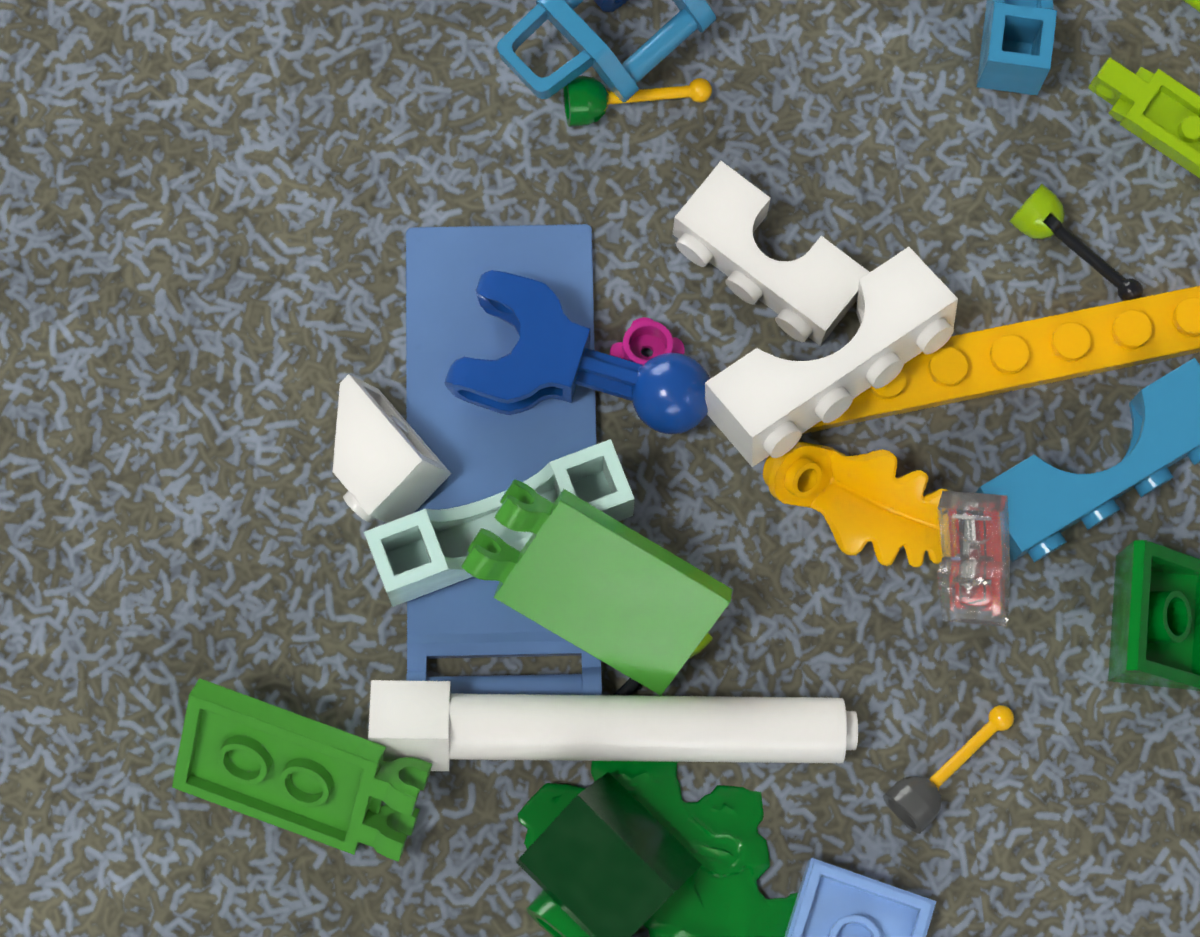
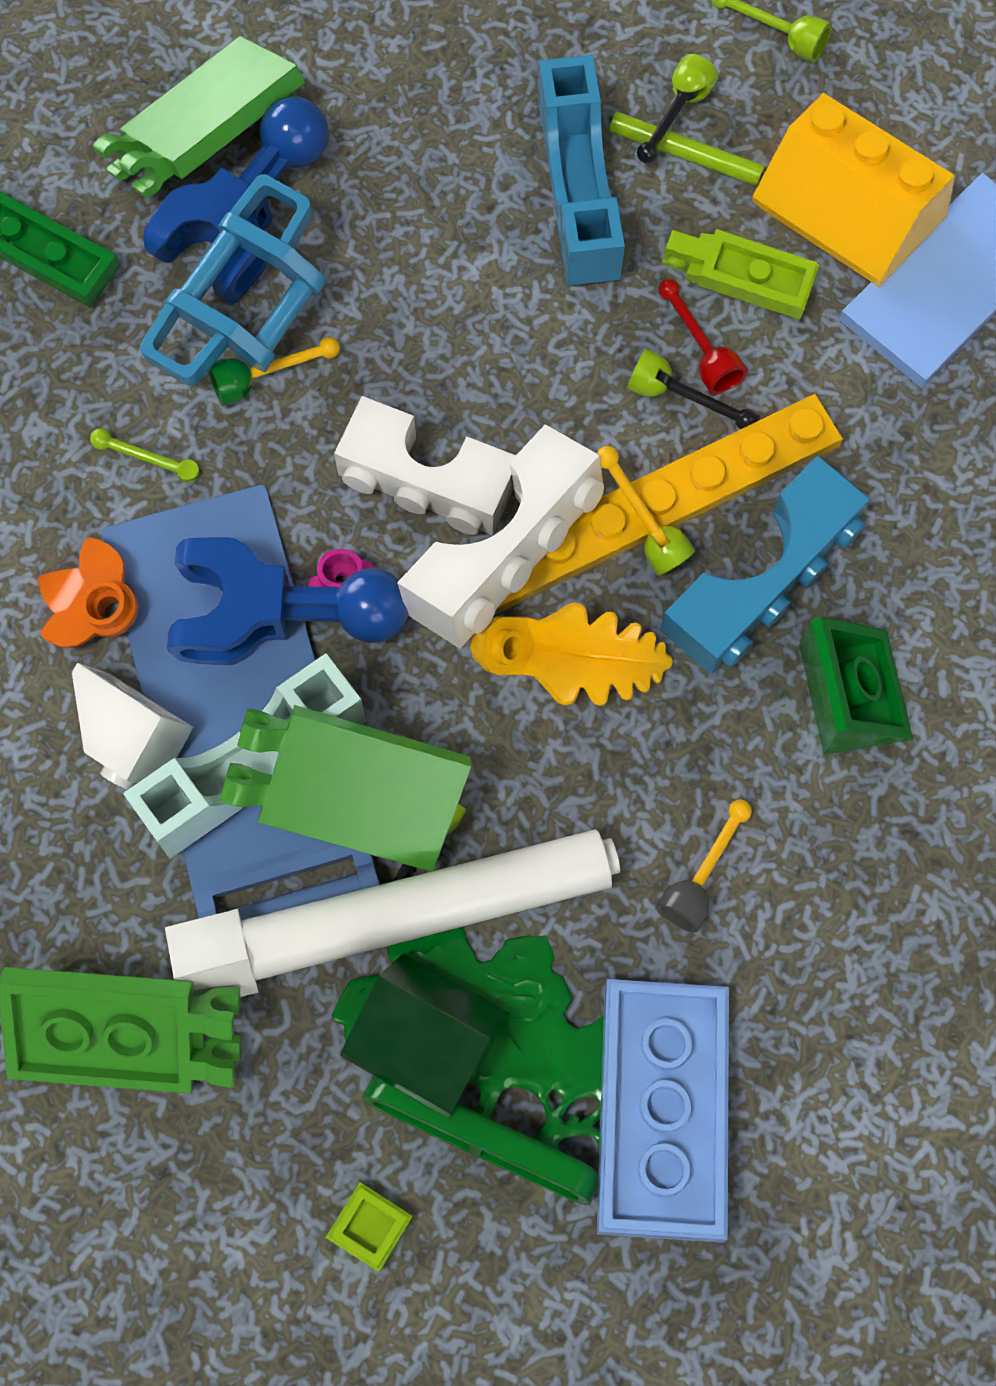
camera: 15 degrees left, 5 degrees down
(370, 297) = (83, 596): none -> orange plate
(512, 187) = (186, 470): none -> lime hinge
(975, 558) = (677, 676): clear slope -> none
(1002, 410) = (665, 545): none -> hinge
(1116, 224) = (718, 367): none -> red hinge

